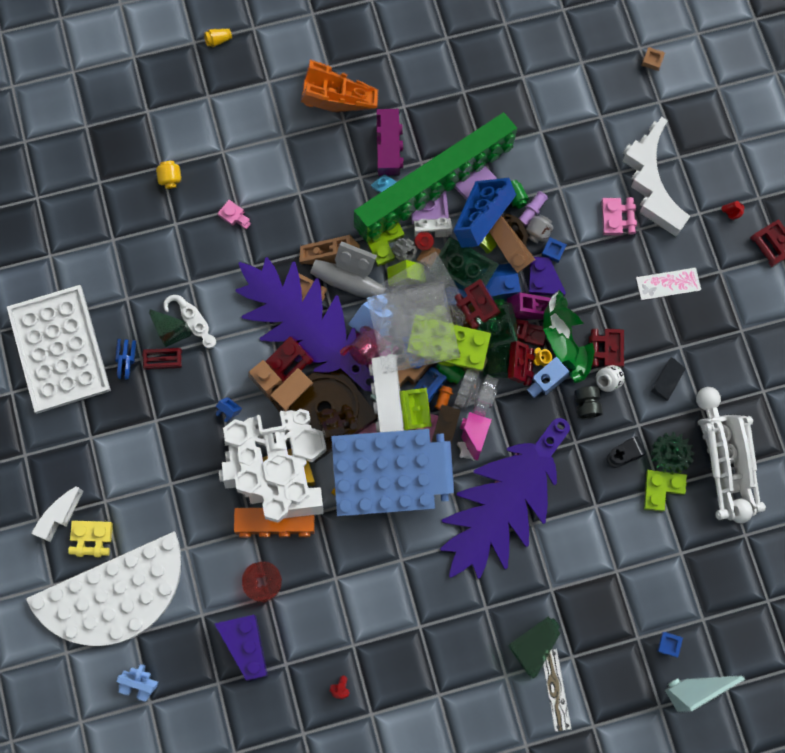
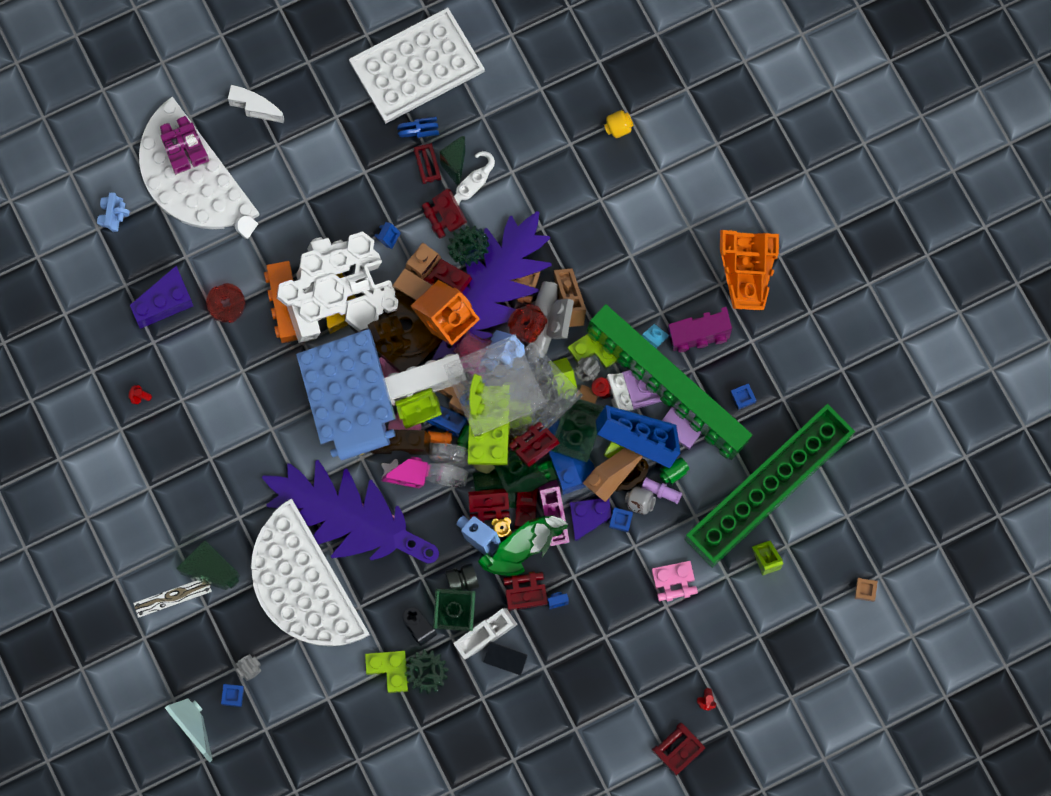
camera: 80 degrees right, 0 degrees up
(78, 597) = (183, 139): none -> magenta hips
(90, 532) = (245, 139): light yellow plate -> none
(185, 547) = (245, 226): none -> white tile
(217, 36) = (784, 137): yellow cone -> none
(217, 345) = (449, 210): none -> dark red plate
(233, 213) = (591, 196): bright pink plate -> none
(253, 339) = (468, 245): none -> clear green gear
(328, 360) = (445, 312): none -> orange brick
(341, 291) = (533, 329): none -> clear red plate
(433, 344) = (476, 402): none -> lime slope
(457, 122) = (743, 396): none -> blue plate
(547, 115) = (769, 485): none -> green brick
(566, 559) = (299, 584): none -> white plate
(610, 378) = (491, 596): white head -> none
(612, 132) = (767, 557): none -> lime slope
(619, 414) = (454, 609): none -> clear green slope
(621, 319) = (558, 600): none -> blue plate
(643, 392) = (484, 633): none -> white slope
(643, 624) = (248, 667): none -> light grey gear
(657, 203) = (746, 596): white arch -> none
(668, 283) = (611, 645): white sticker -> none
(730, 443) = (380, 747): white piece -> none

